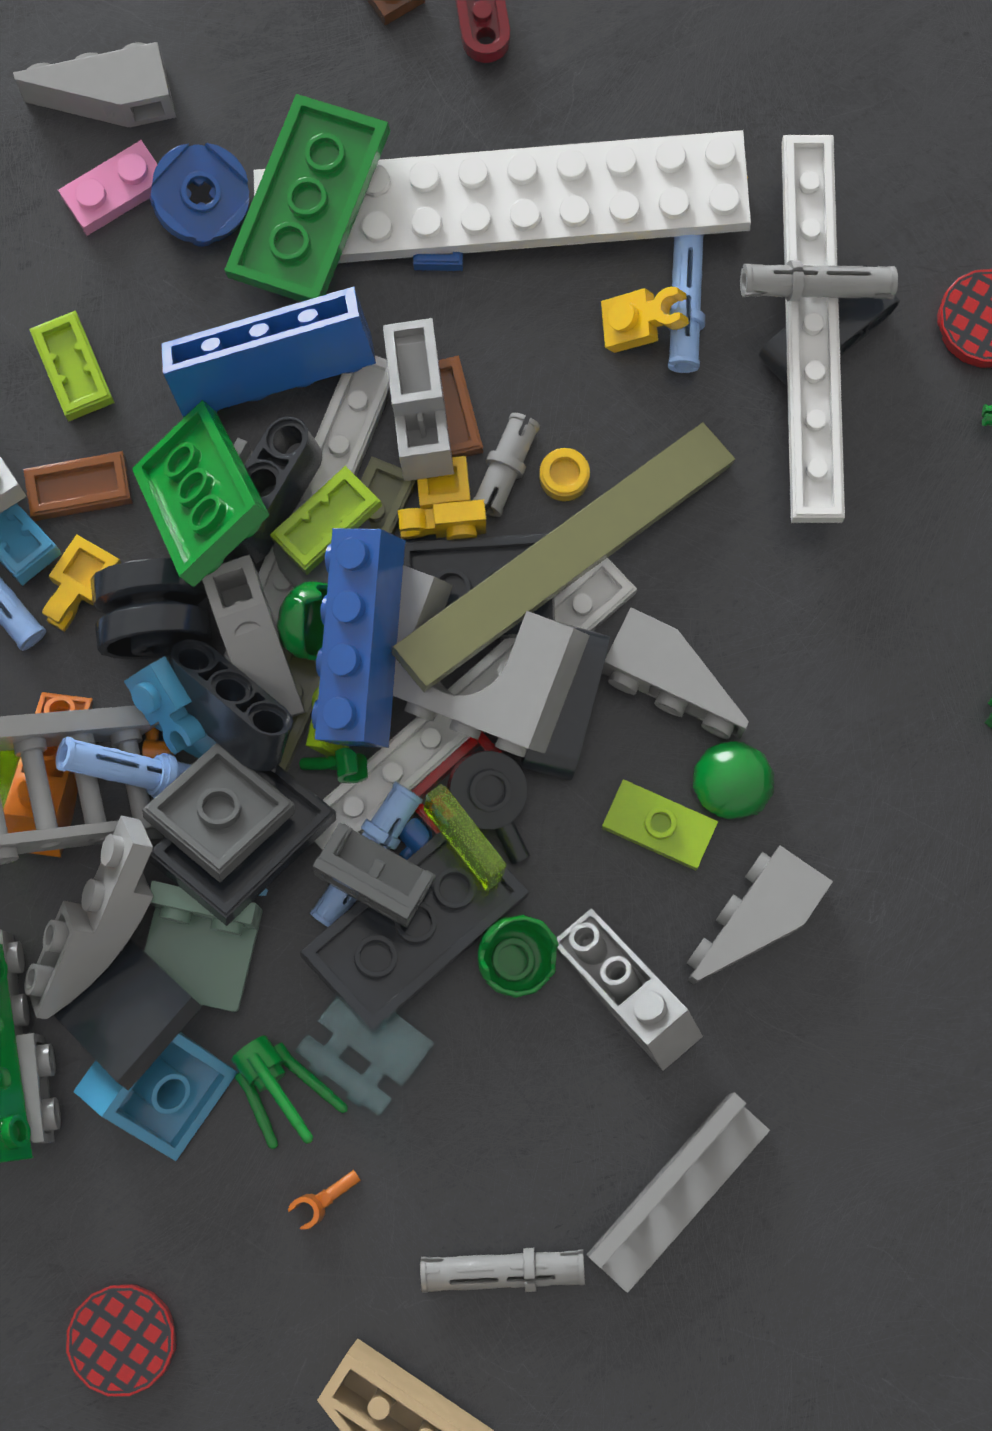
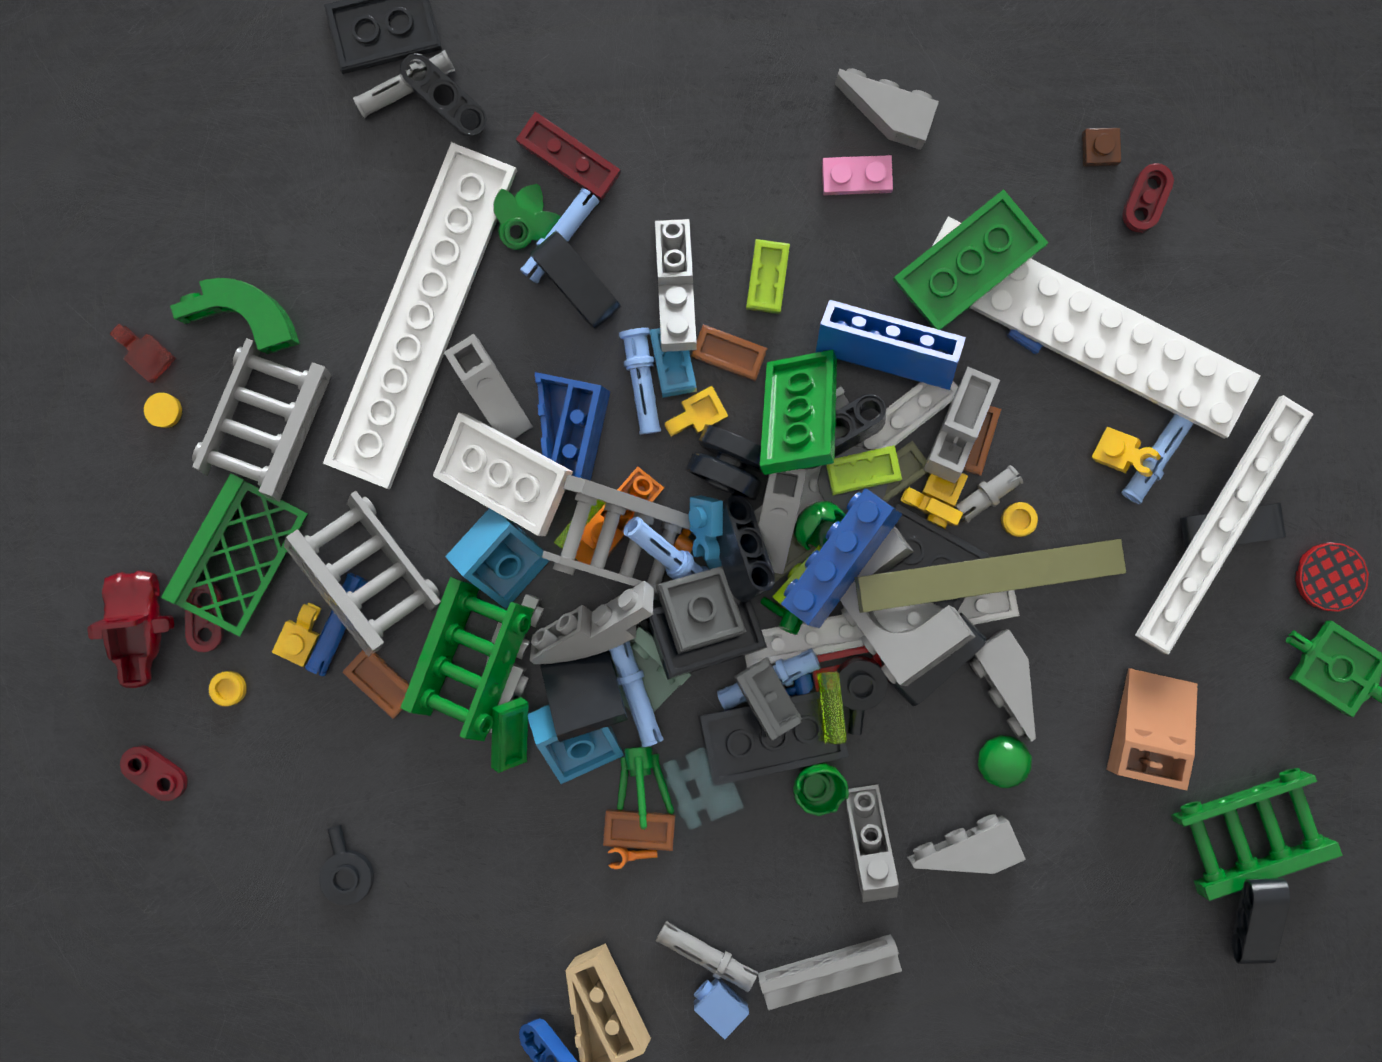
camera: 30 degrees right, 10 degrees up
(64, 1131) = (509, 734): none -> green tile
(121, 1340) = (475, 864): tile -> none
(200, 165) = (889, 205): blue plate -> none
(210, 983) = (631, 680): none -> light blue pin
(302, 1167) = (624, 830): none -> dark orange tile
(559, 1327) = (720, 1006): none -> medium blue brick
(659, 825) = (946, 761): lime plate -> none
(818, 281) = (1233, 496): light grey pin -> none
(893, 626) = (1155, 730): none -> nougat slope

